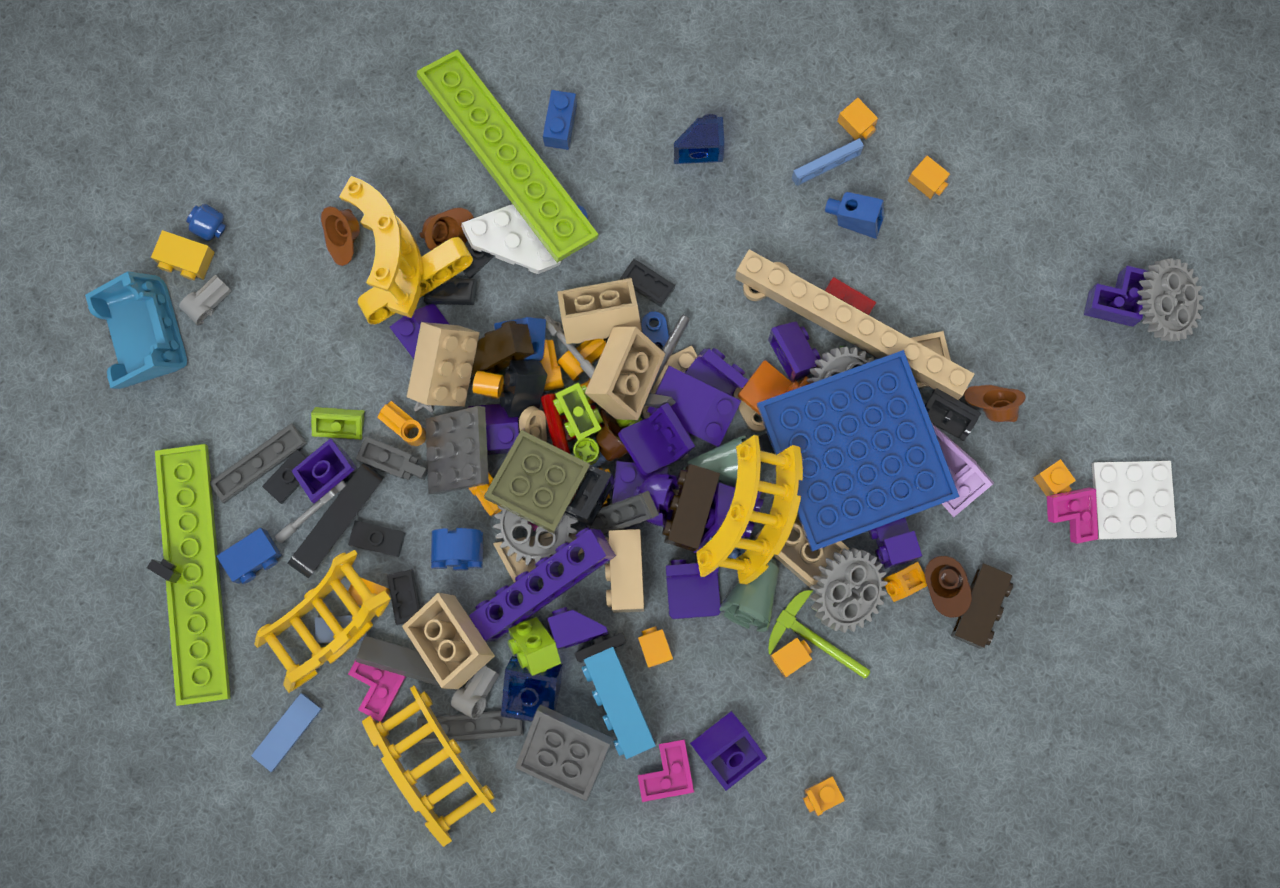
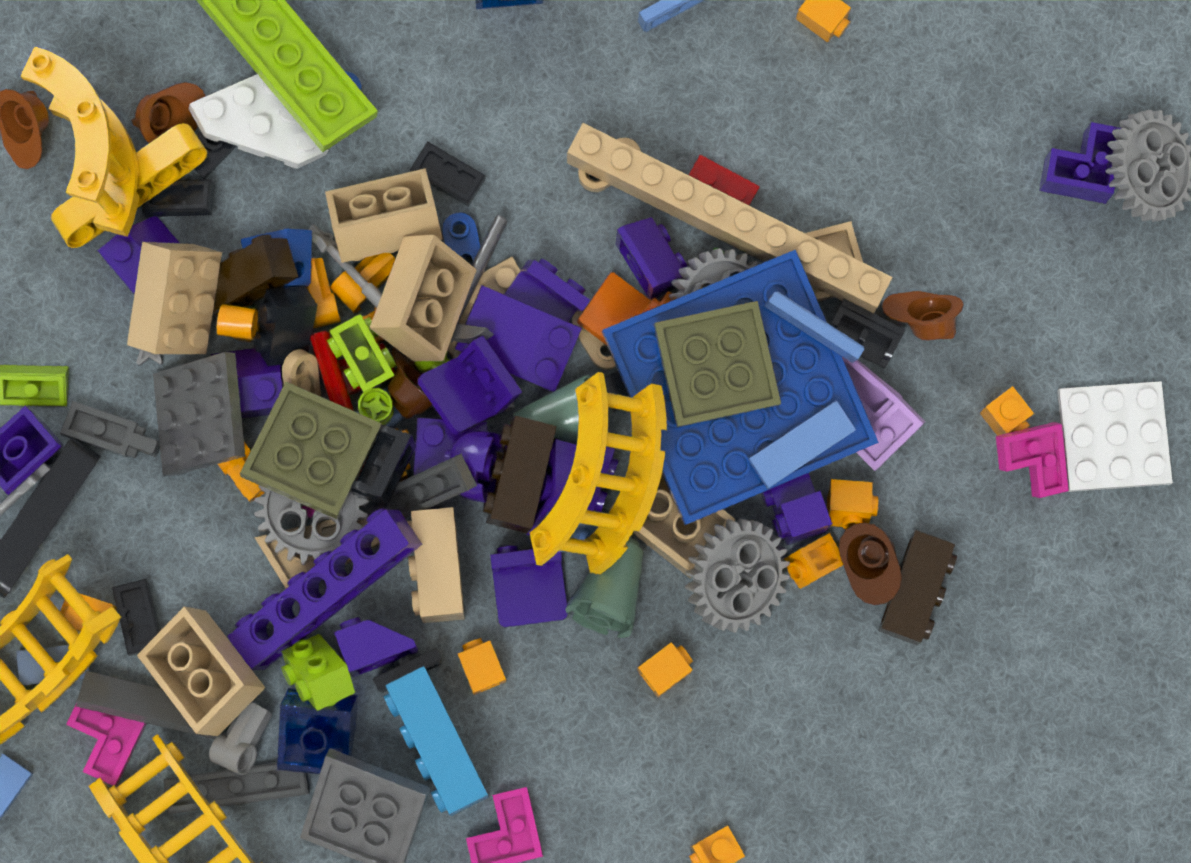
camera: 15 degrees left, 0 degrees up
(376, 538) = (95, 539): black plate -> none
(401, 423) = (121, 382): light orange piece -> none
(457, 549) = (206, 547): blue brick -> none
(728, 750) = (587, 798): dark purple slope -> none
(787, 620) = (658, 621): lime piece -> none
(842, 432) = (717, 364): none -> olive plate
(858, 213) = (729, 66): blue torso -> none
(902, 495) = (801, 444): none -> medium blue tile
(916, 408) = (814, 326): none -> medium blue tile
(935, 540) = (851, 502): none -> light orange brick

